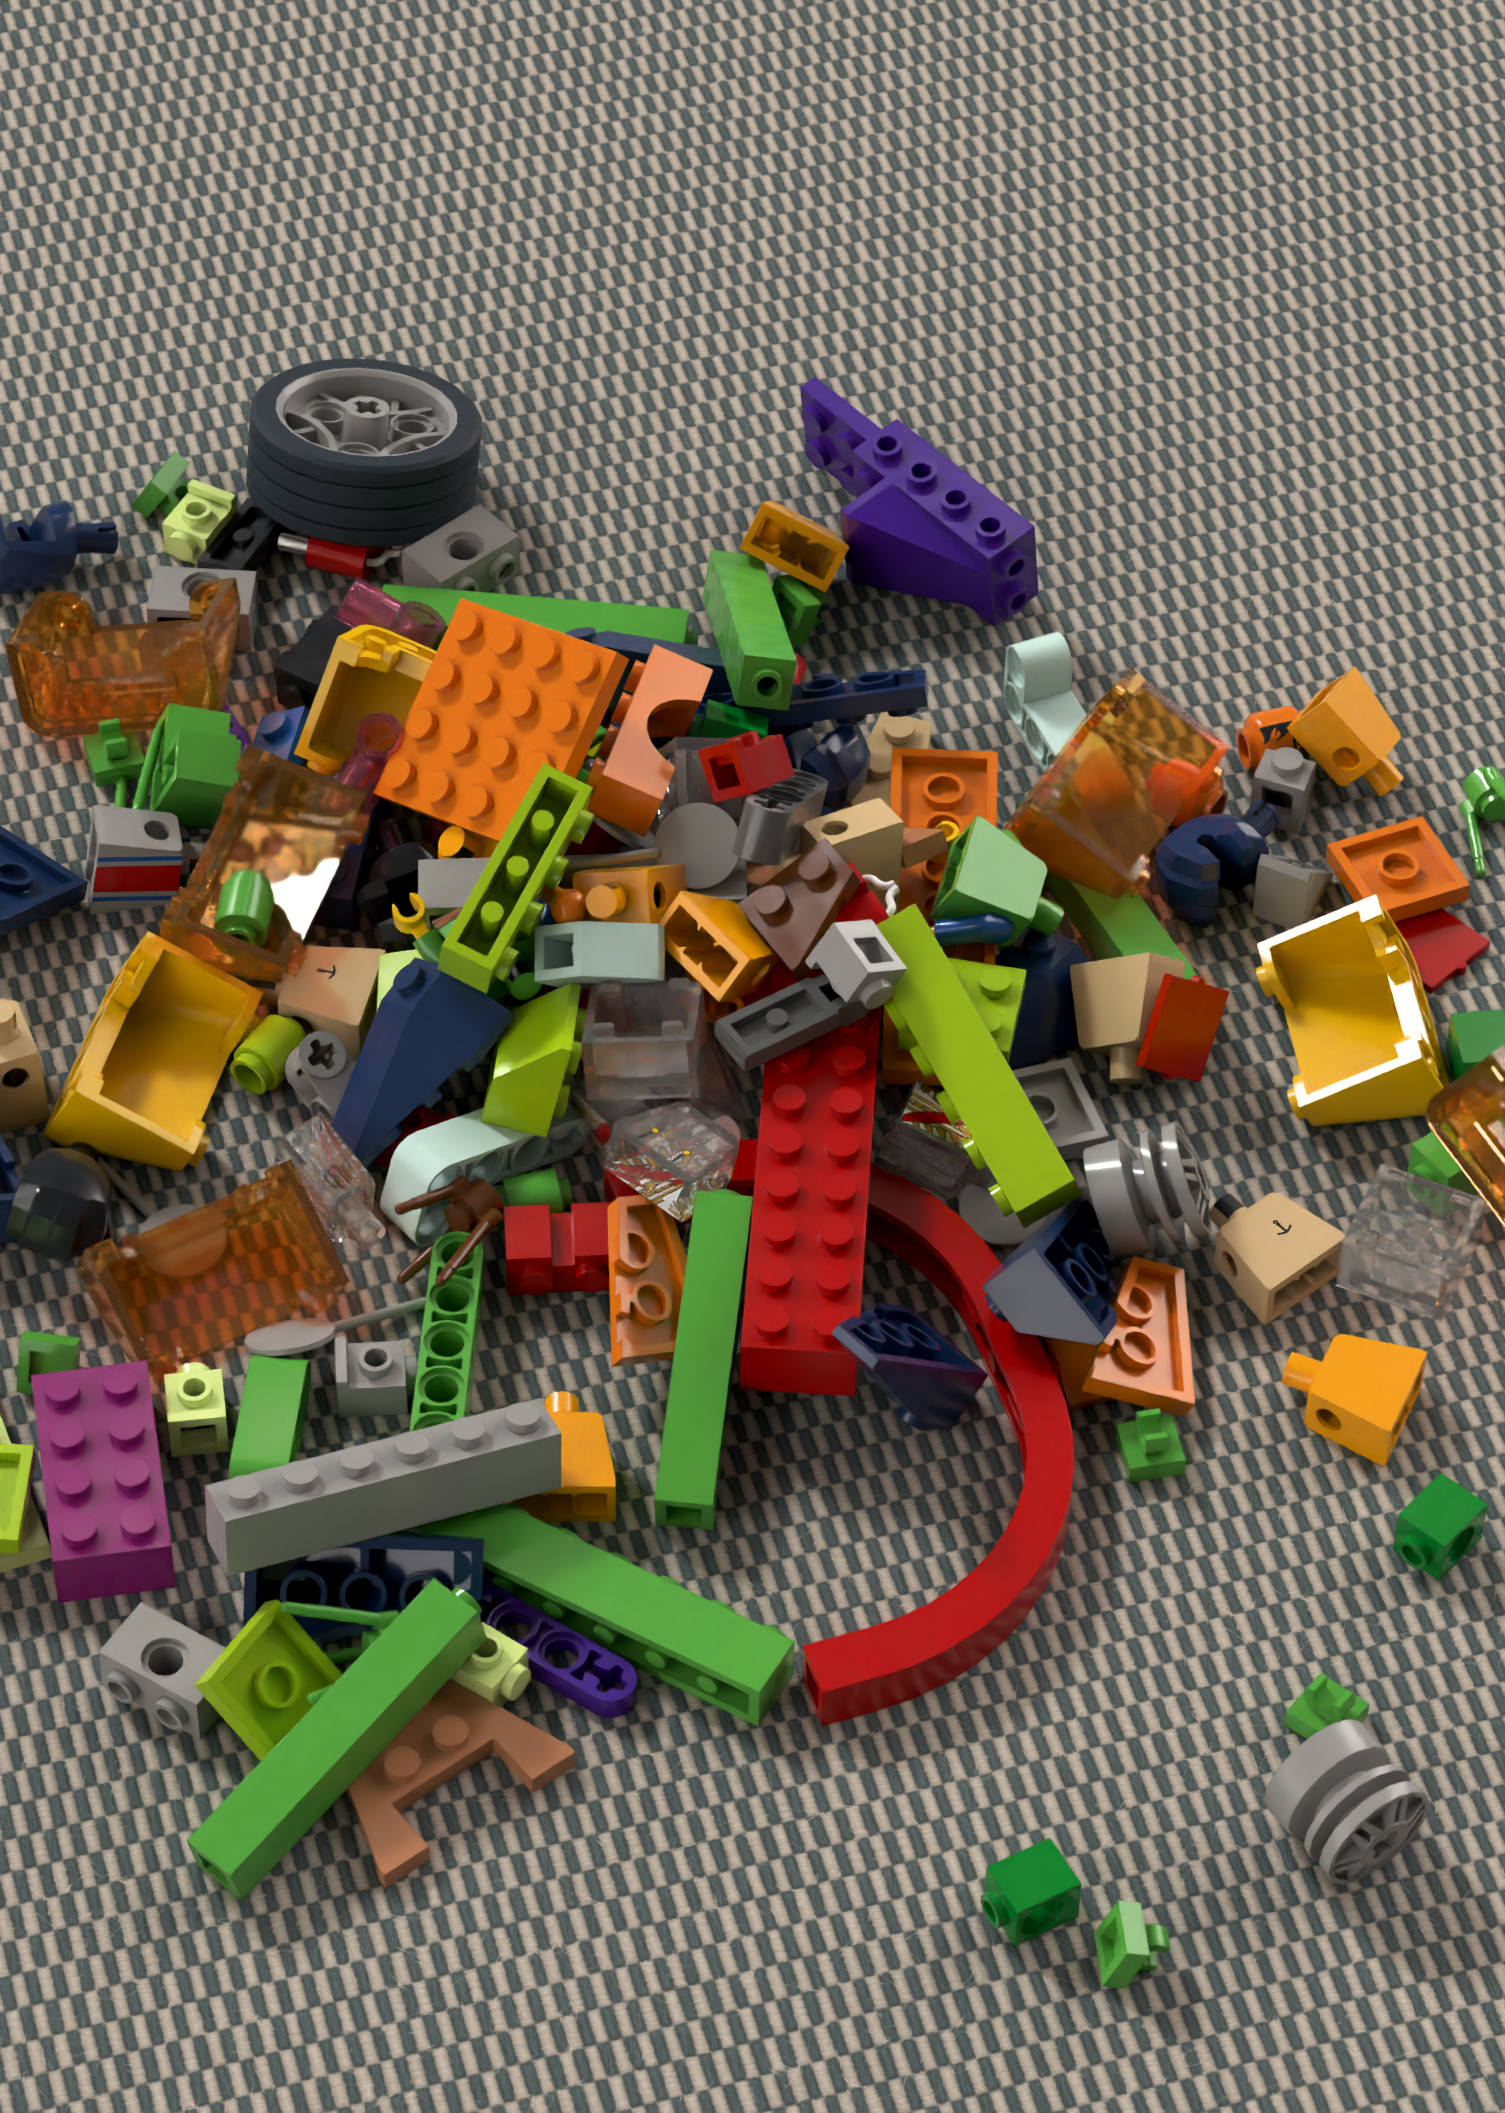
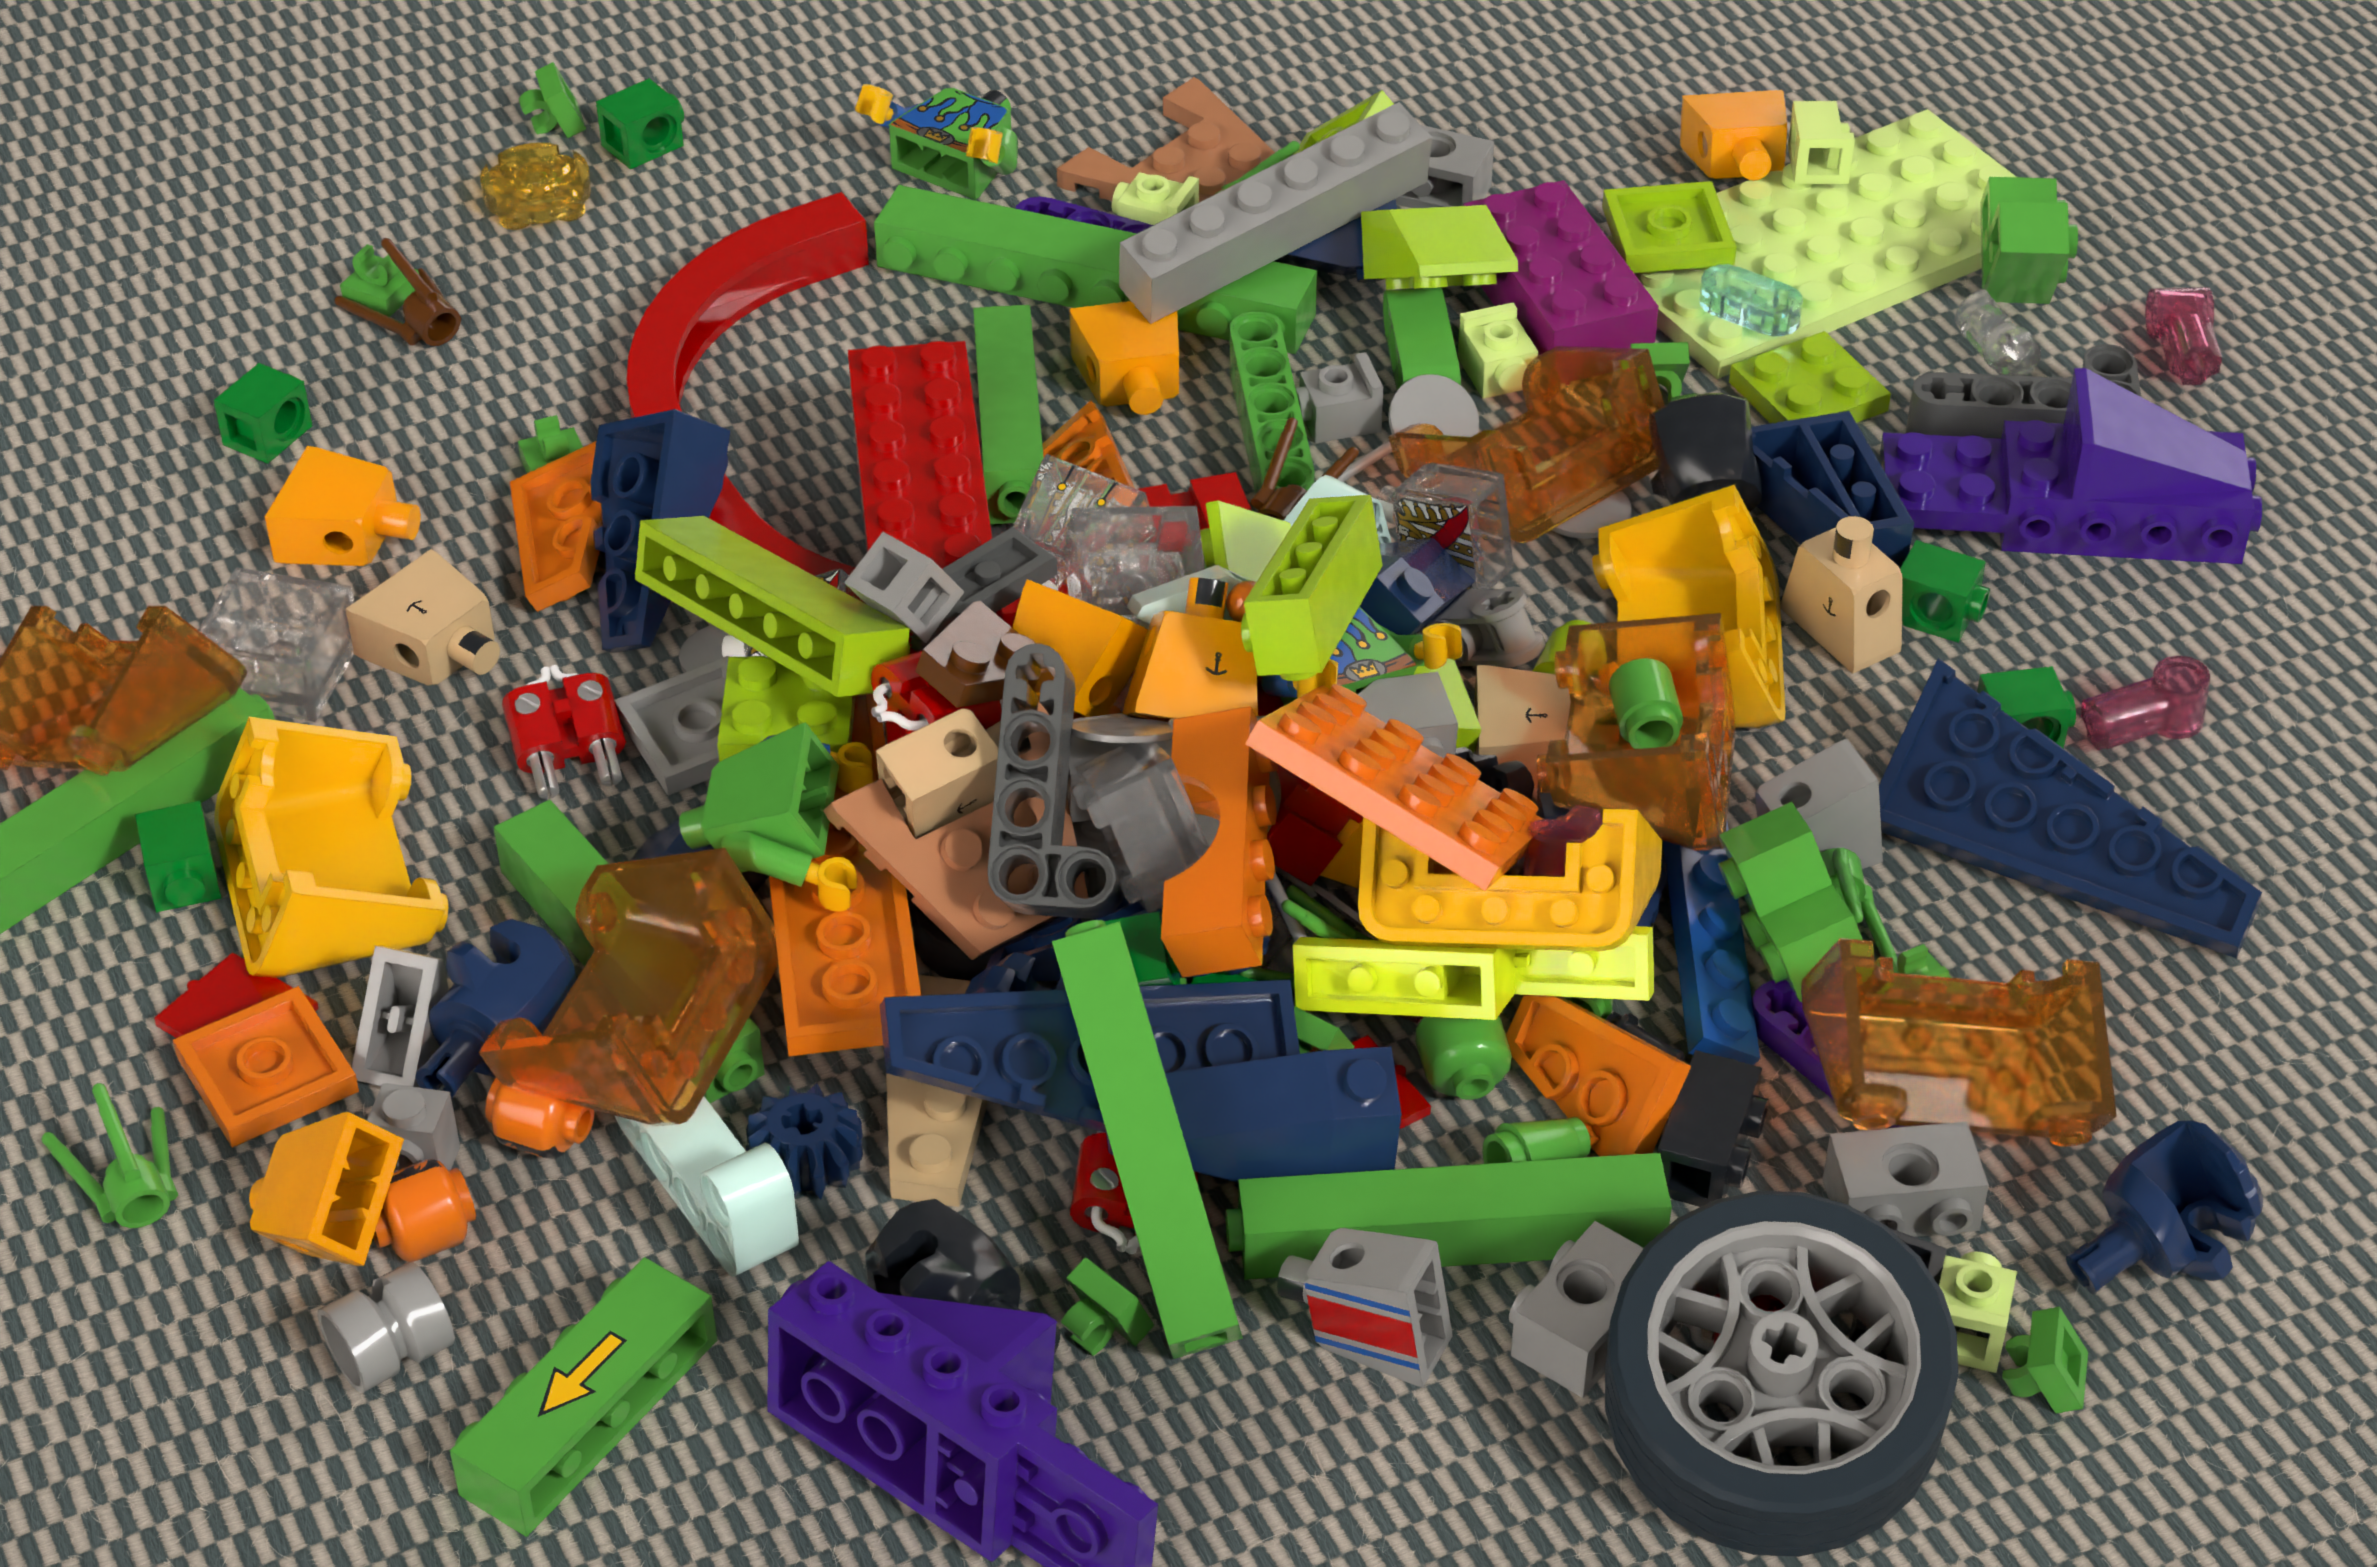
camera: 170 degrees right, 5 degrees down
(212, 1450) = (1434, 247): none -> lime slope
(338, 1738) = (1255, 111): bright green brick -> none
(374, 607) = (1639, 1116): clear pink piece -> none
(609, 561) = (1375, 1300): none -> light grey torso
(680, 1799) = (947, 138): none -> torso
(745, 765) = (1053, 752): red brick -> none
(795, 544) = (1126, 1358): light orange torso -> none
(893, 619) = (941, 1257): none -> black piece
(912, 1364) = (800, 388): dark blue wedge -> none
(997, 734) = (811, 1135): none -> dark blue gear
(1115, 1007) = (602, 802): tan torso -> none
(1129, 1116) = (564, 724): none -> red piece
(1147, 1191) = (565, 601): light grey wheel -> none
(1150, 1856) = (518, 202): none -> clear yellow plate
(1162, 606) = (583, 1396): none -> bright green brick
(1182, 1027) = (532, 777): red piece -> none
(1279, 1645) = (425, 310): none -> reddish brown plant
(1299, 660) = (380, 1329): none -> light grey wheel
(1346, 1801) = (362, 175): light grey wheel -> none

